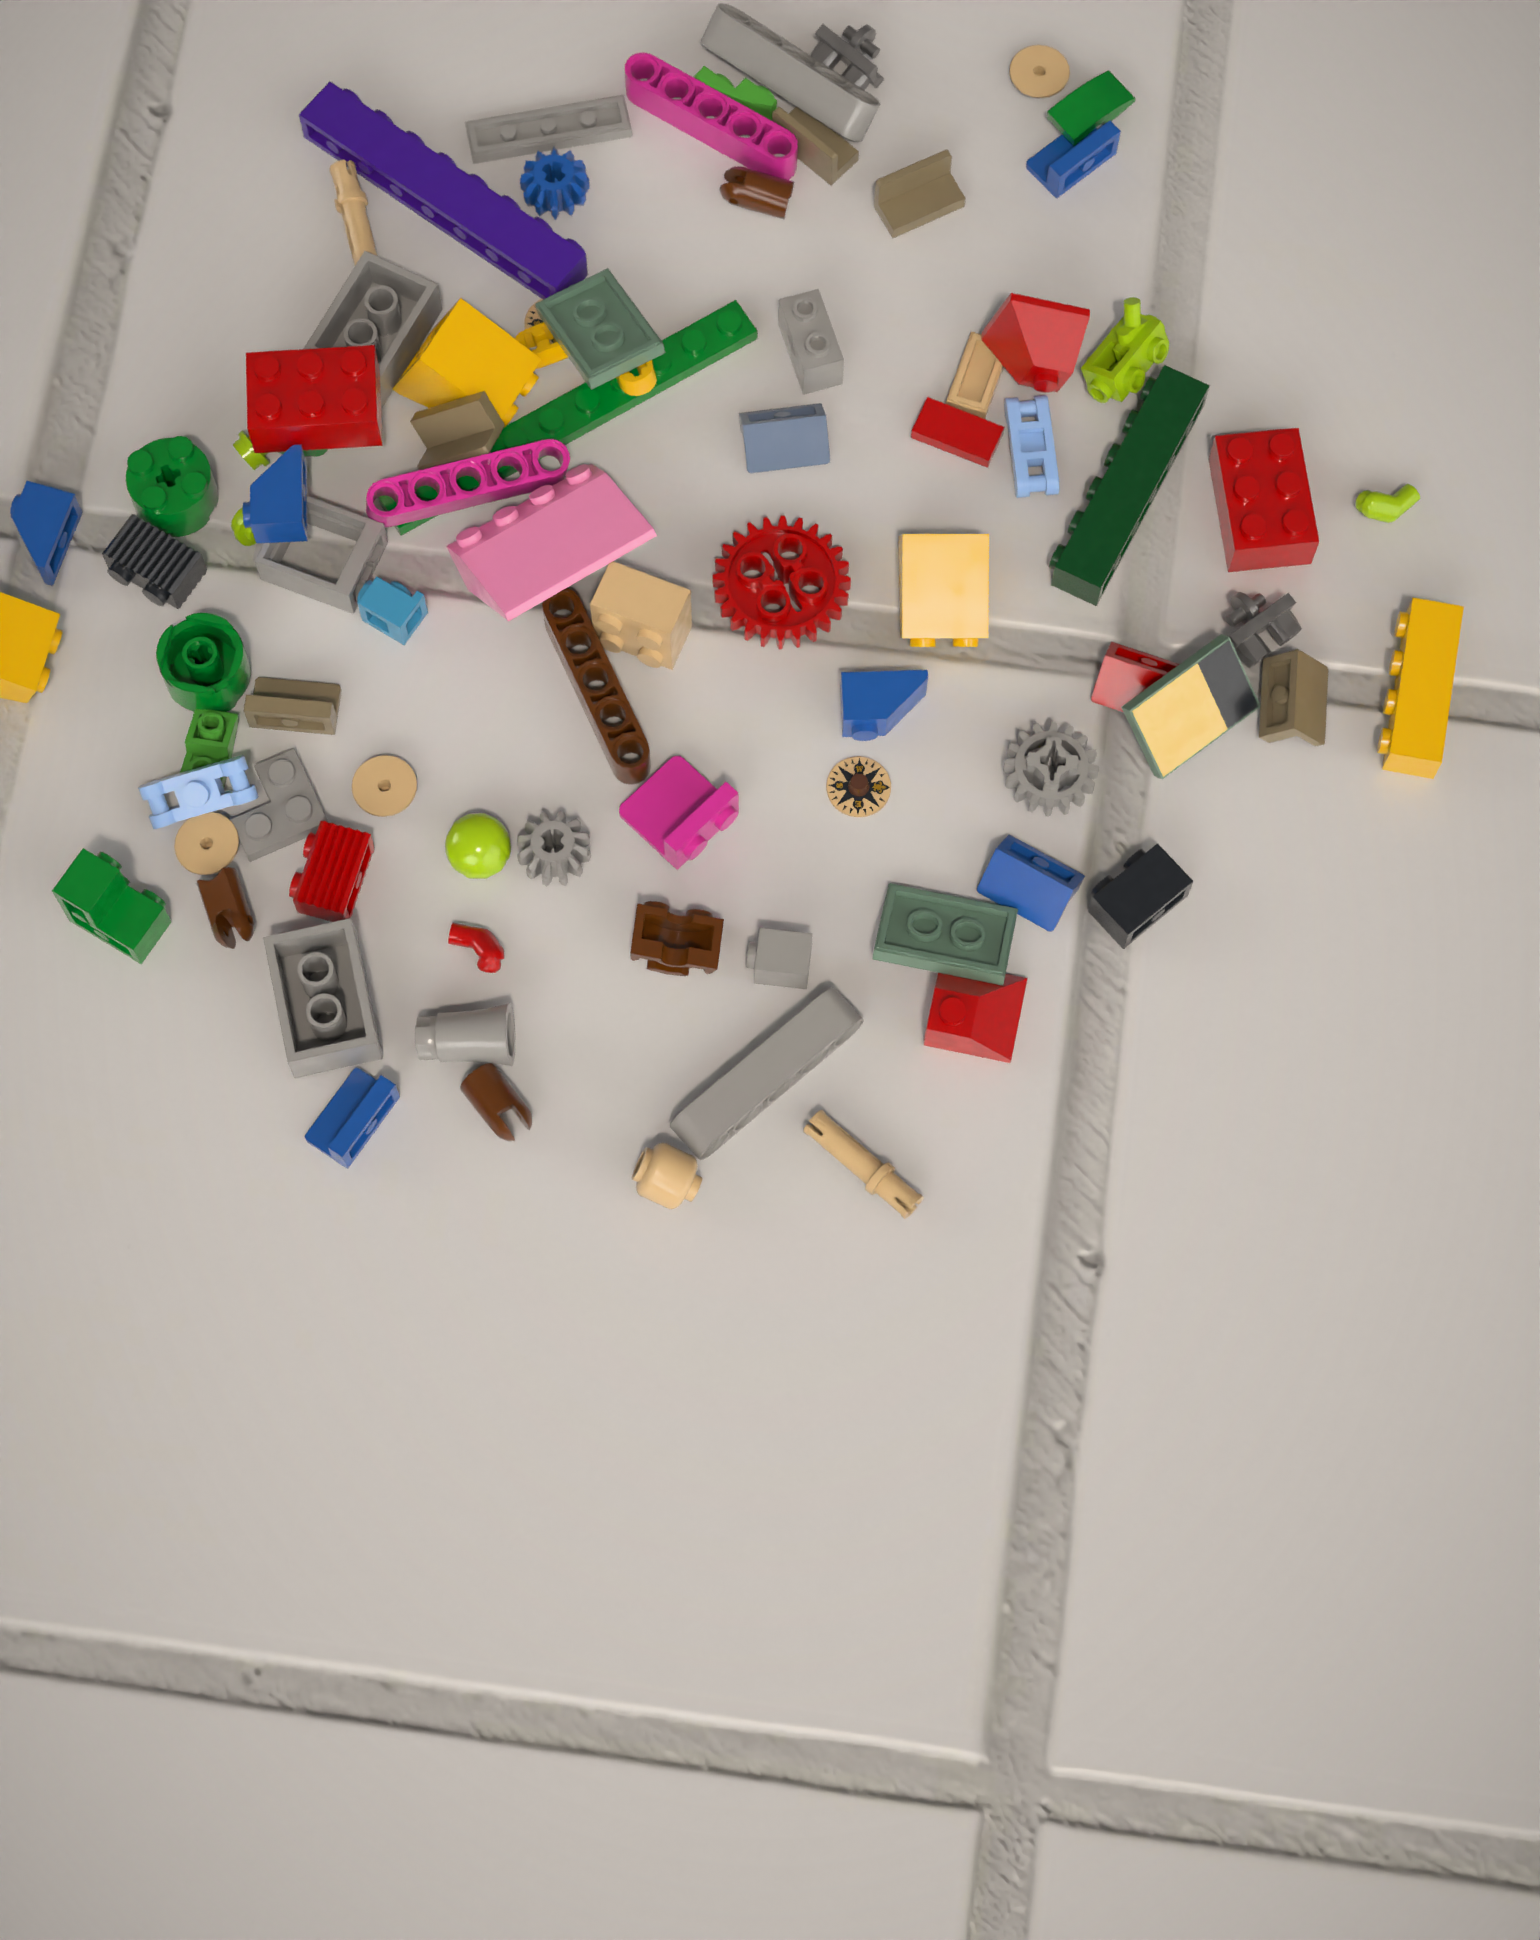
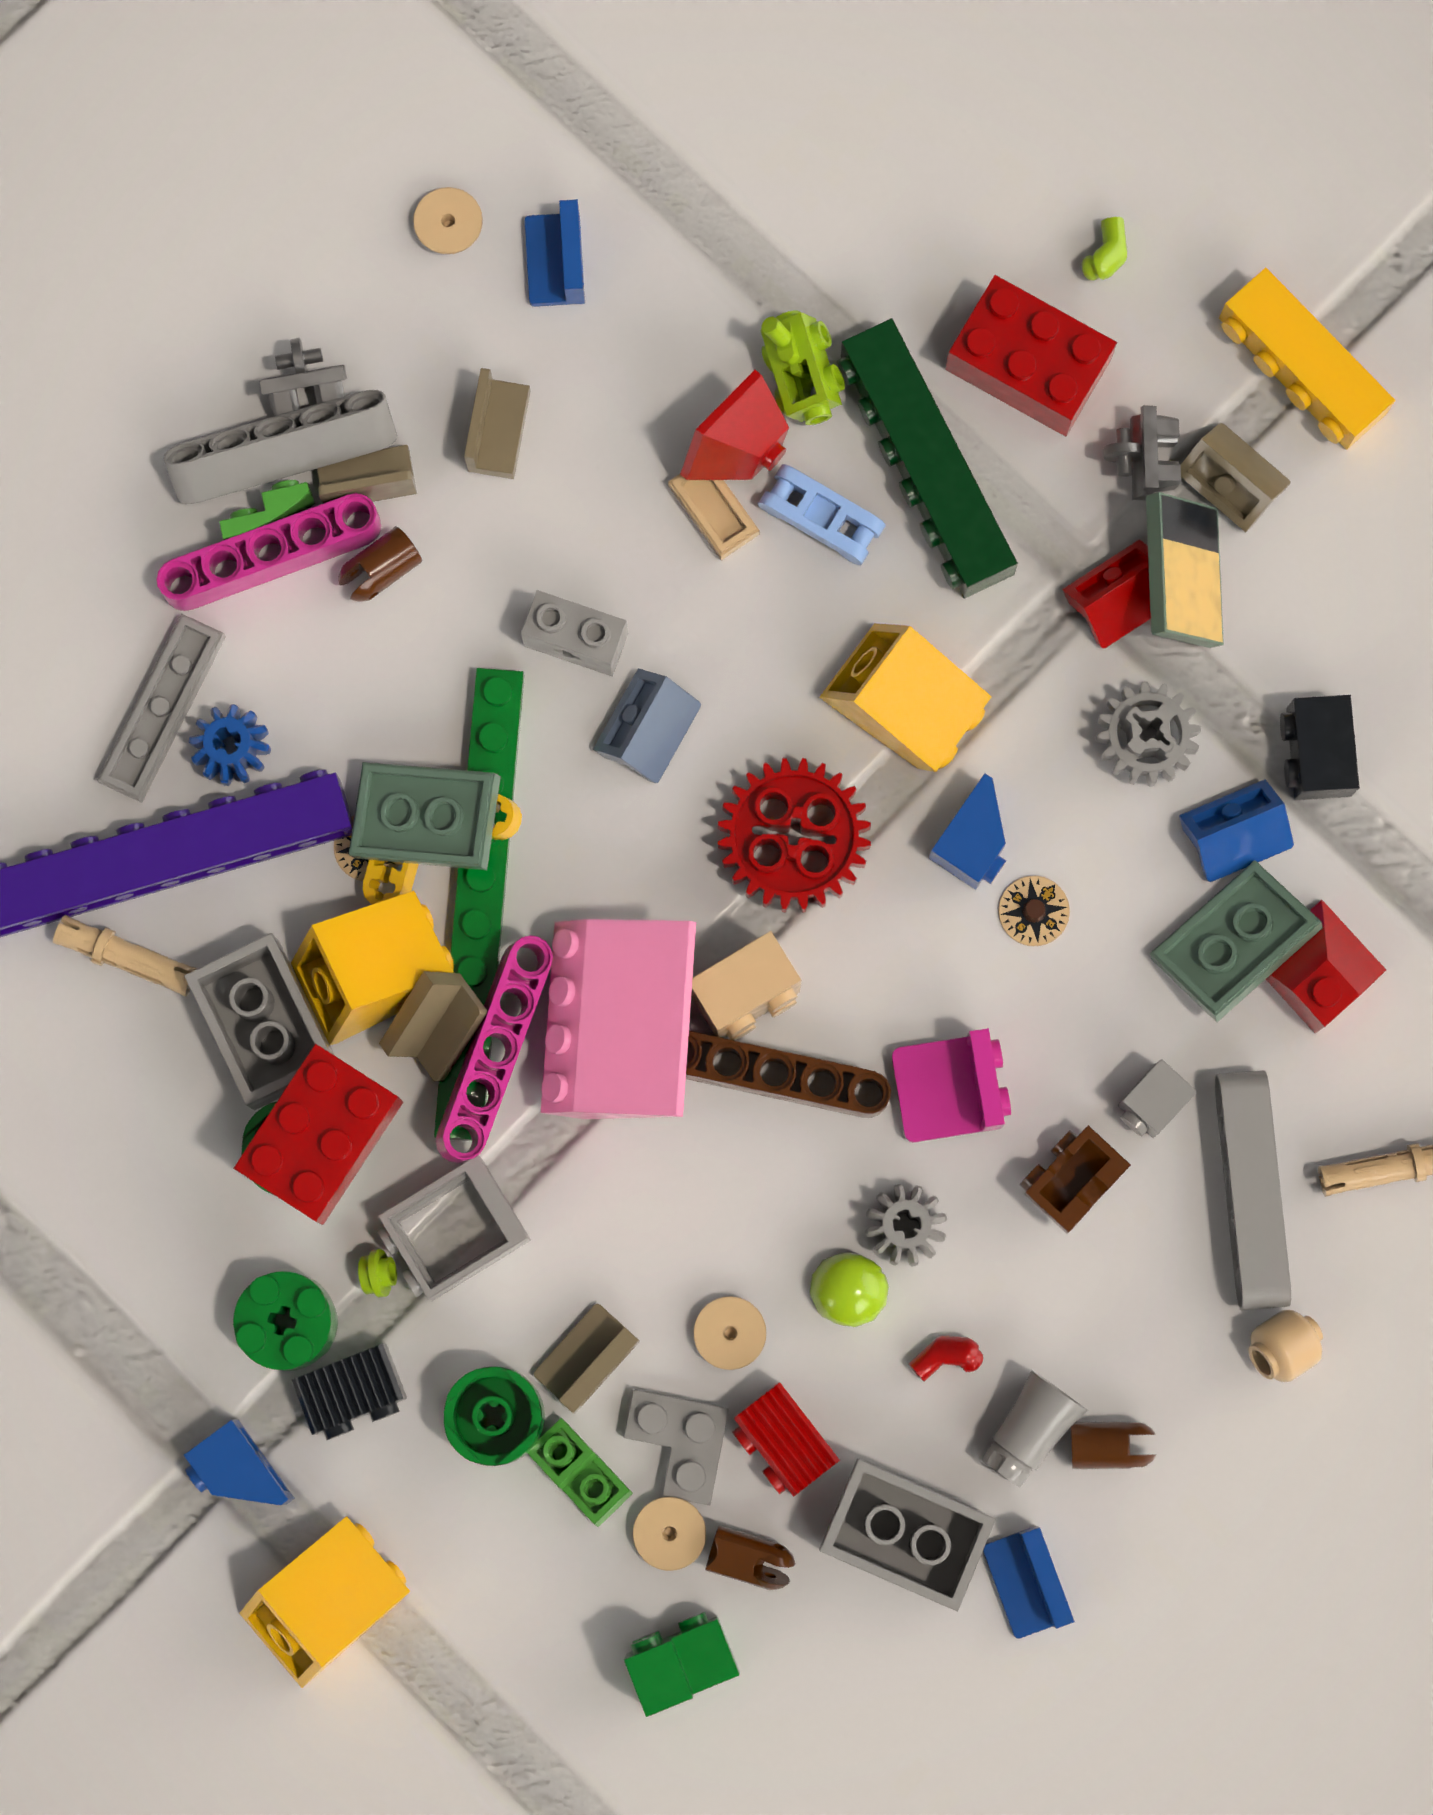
camera: 50 degrees left, 10 degrees up
(198, 791) = (619, 1508): light blue plate -> none
(245, 449) = (295, 1223): lime plate -> none
(279, 500) = (393, 1237): blue slope -> none
(391, 608) = (558, 1205): dark azure brick -> none
(957, 432) = (757, 568): red tile -> none
(1089, 106) = (524, 204): green slope -> none

